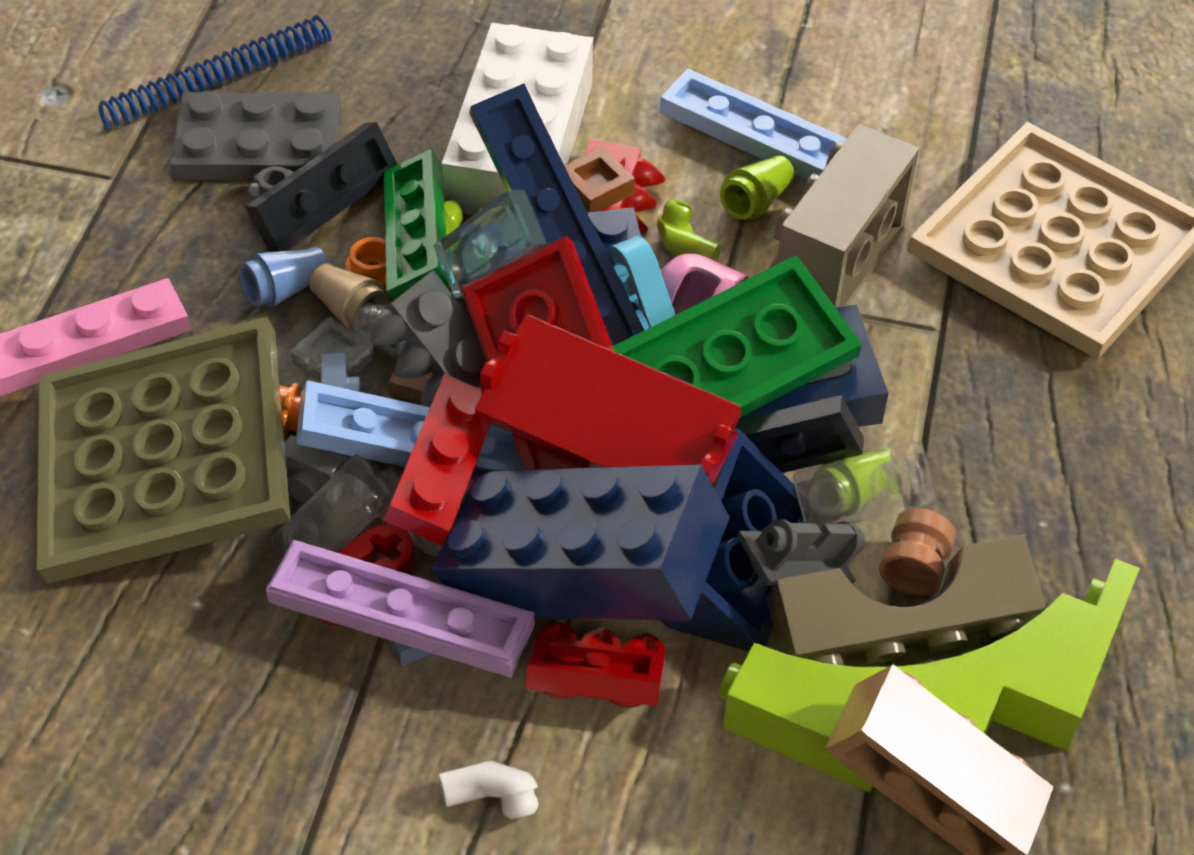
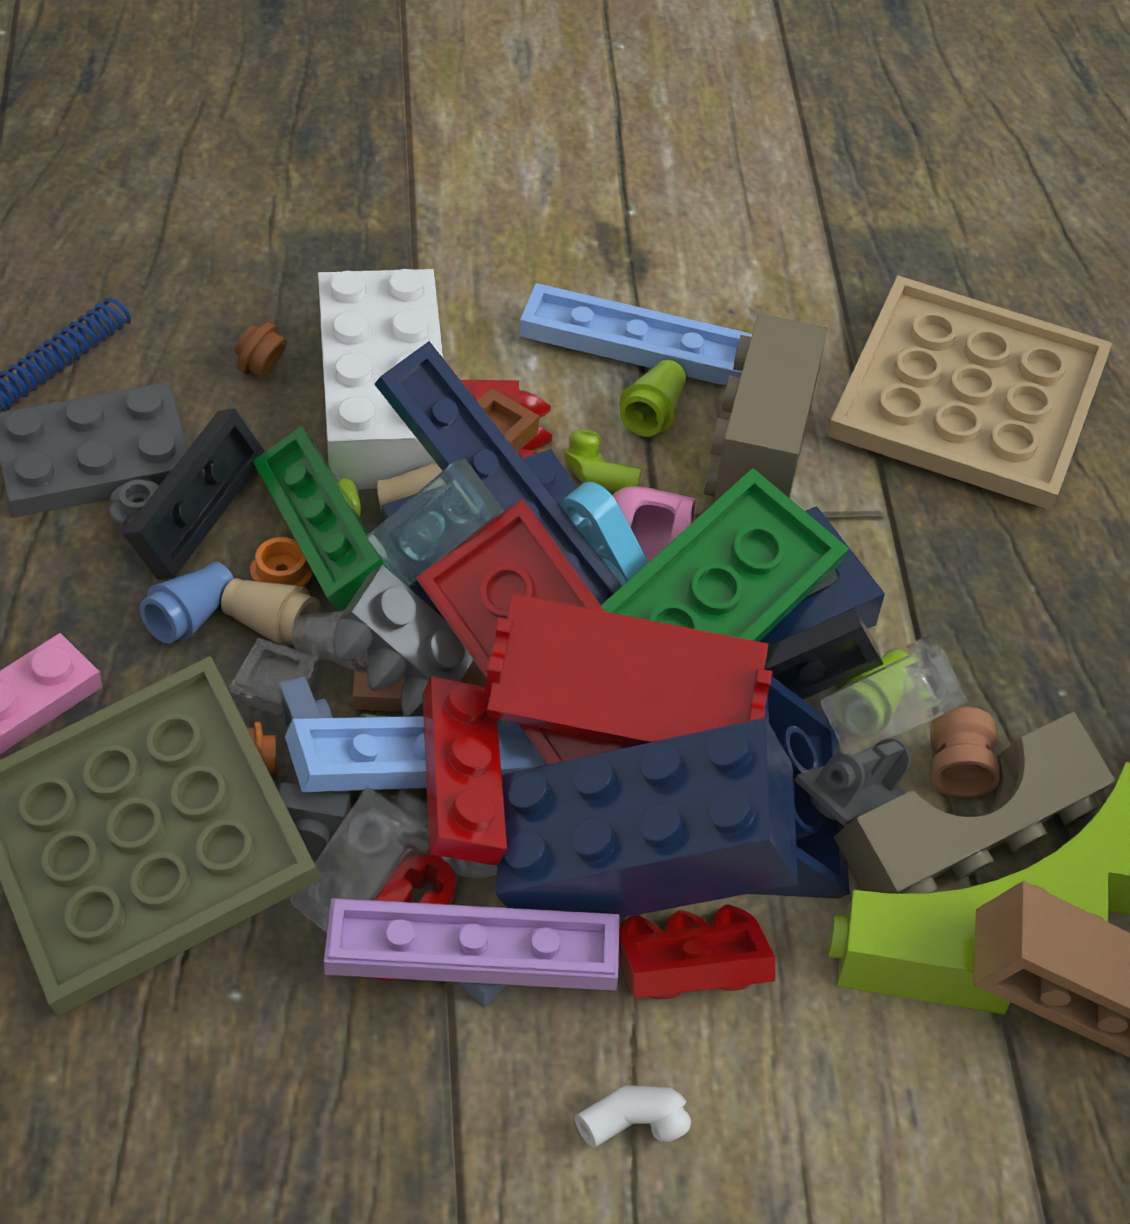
camera: 20 degrees left, 0 degrees up
(426, 80) = (260, 349): none -> dark orange plate

